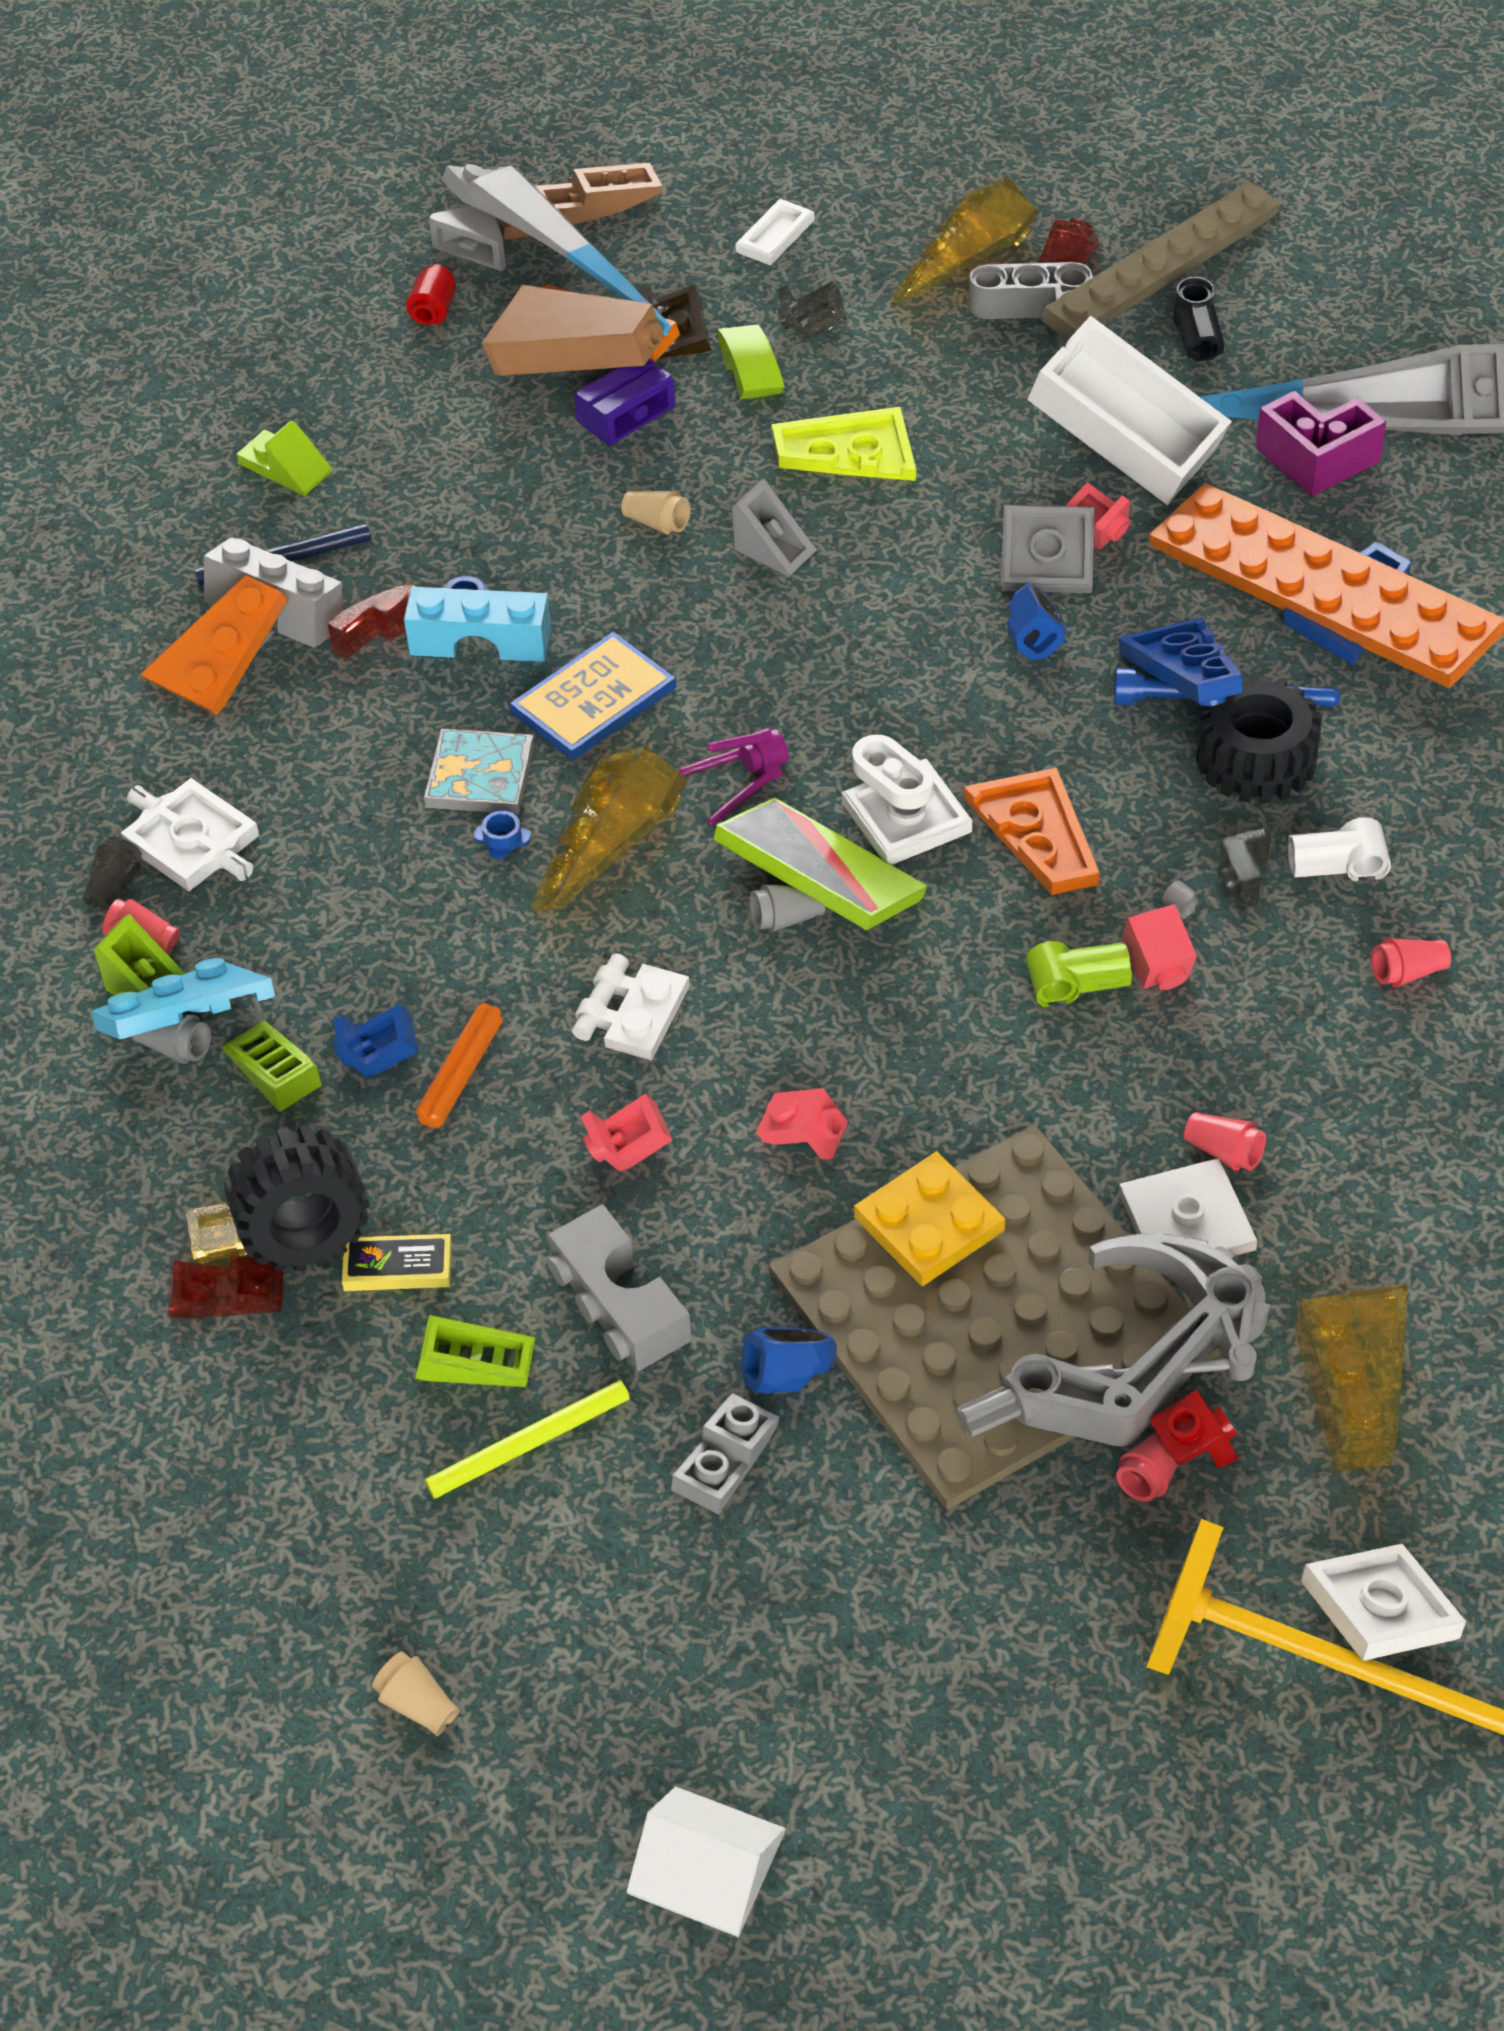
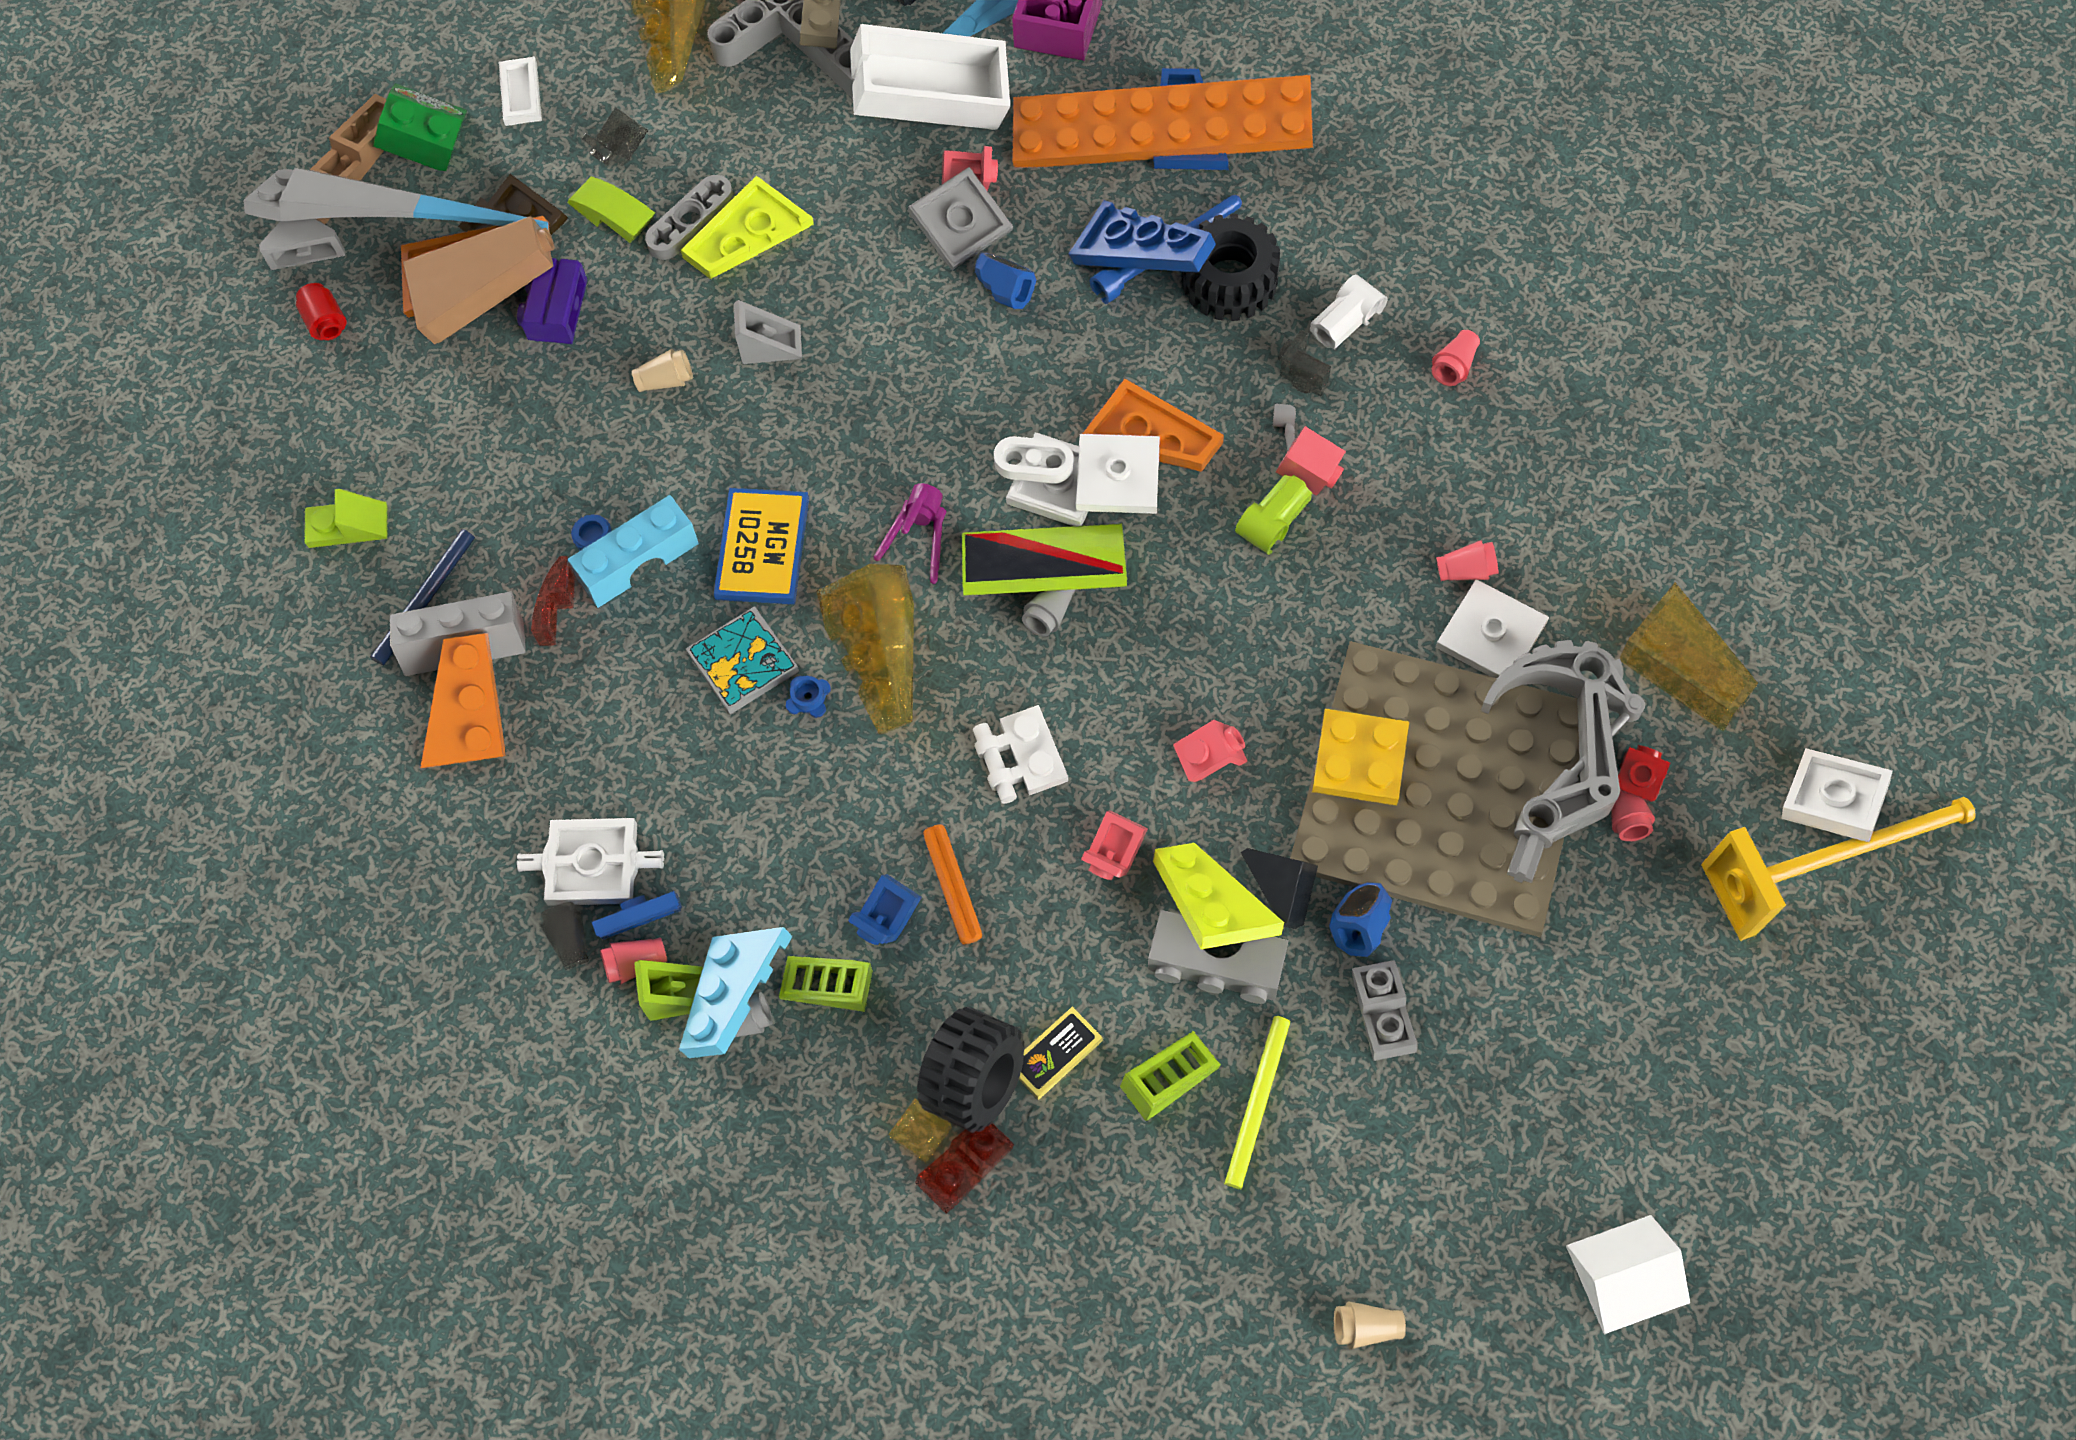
camera: 40 degrees left, 15 degrees up
(178, 896) = (637, 913): none -> blue plate
(655, 203) = (419, 127): none -> green slope
(659, 1232) = (1212, 900): none -> neon yellow wing
(740, 1276) = (1284, 883): none -> black slope
(798, 399) = (692, 202): none -> light grey beam
(960, 835) = (1117, 473): none -> white plate

